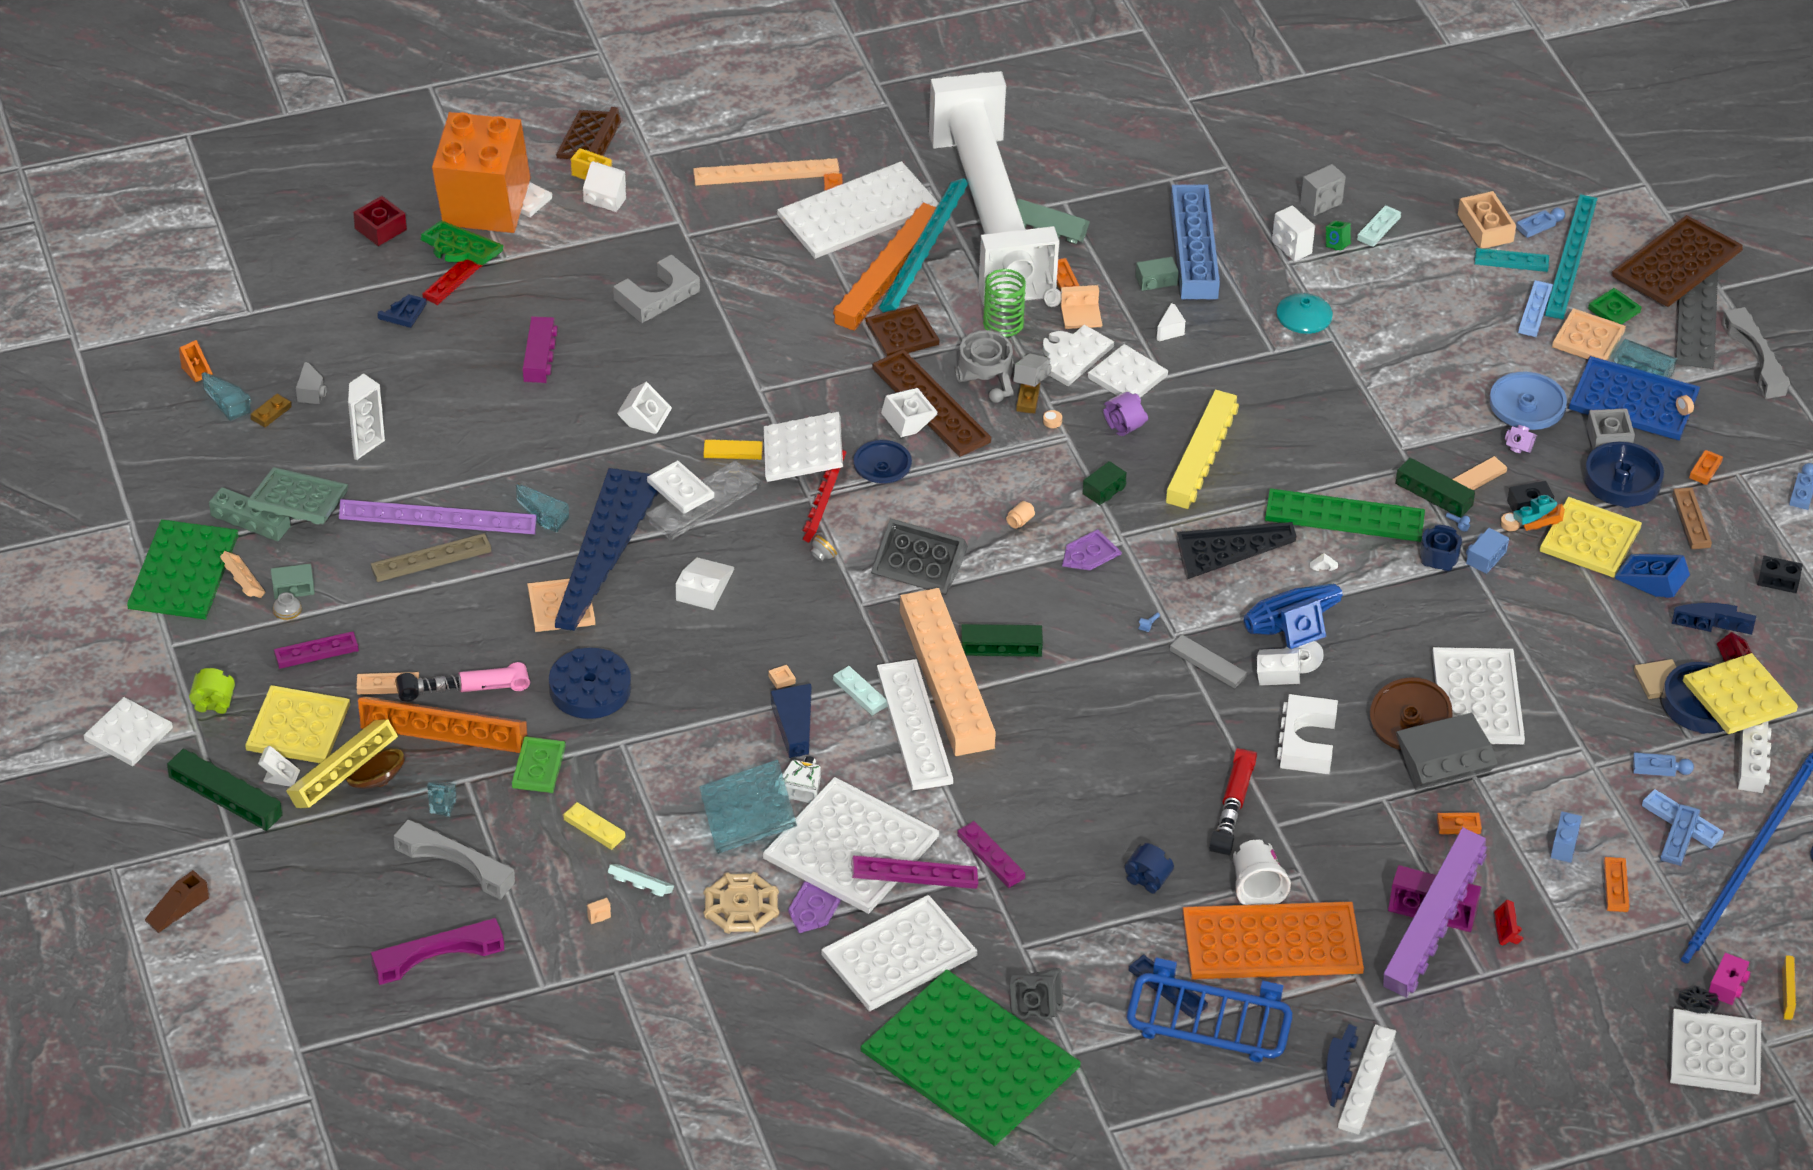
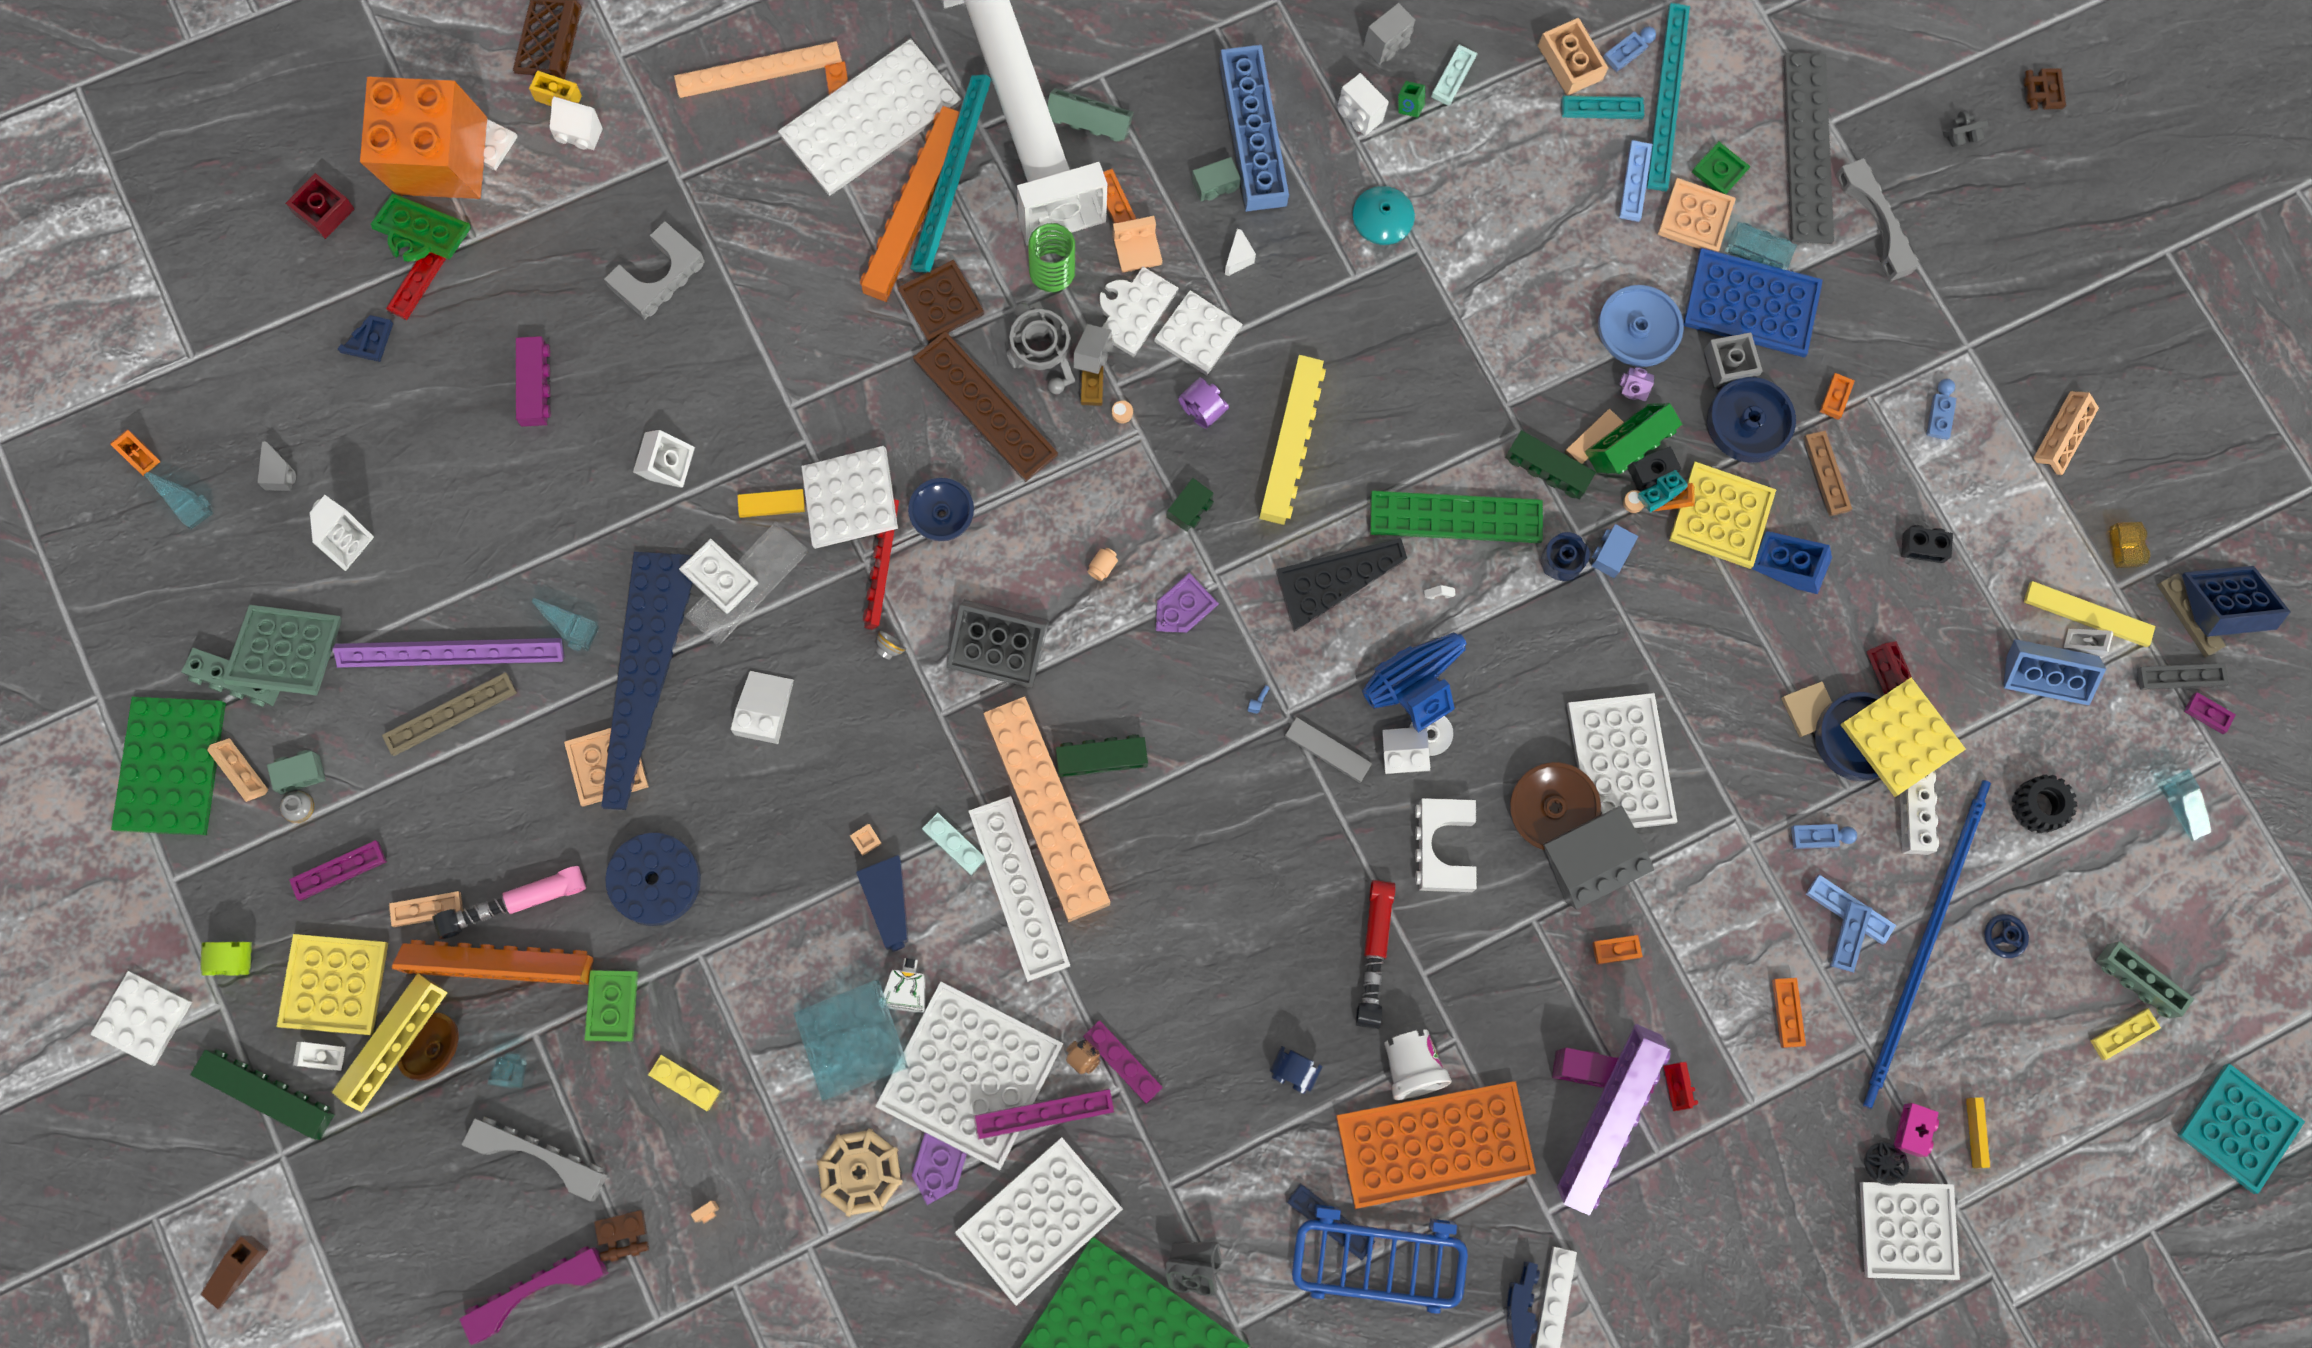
camera: 15 degrees left, 30 degrees up
(271, 410) = (235, 510): pearl gold plate -> none
(521, 922) = (619, 1228): none -> reddish brown plate
(640, 880) = (745, 1158): light aqua plate -> none
(908, 411) = (961, 428): white slope -> none
(955, 842) = (1083, 1056): none -> medium nougat head
(1052, 297) = (1103, 229): white plate -> none
(1463, 523) = (1585, 509): medium blue hand -> none
(1511, 471) = (1633, 438): none -> green brick
(1566, 836) = (1732, 956): medium blue brick -> none
(1677, 260) = (1785, 95): reddish brown plate -> none
(1684, 405) = (1811, 315): light nougat tile -> none
(1709, 615) = (1856, 616): dark blue slope -> none

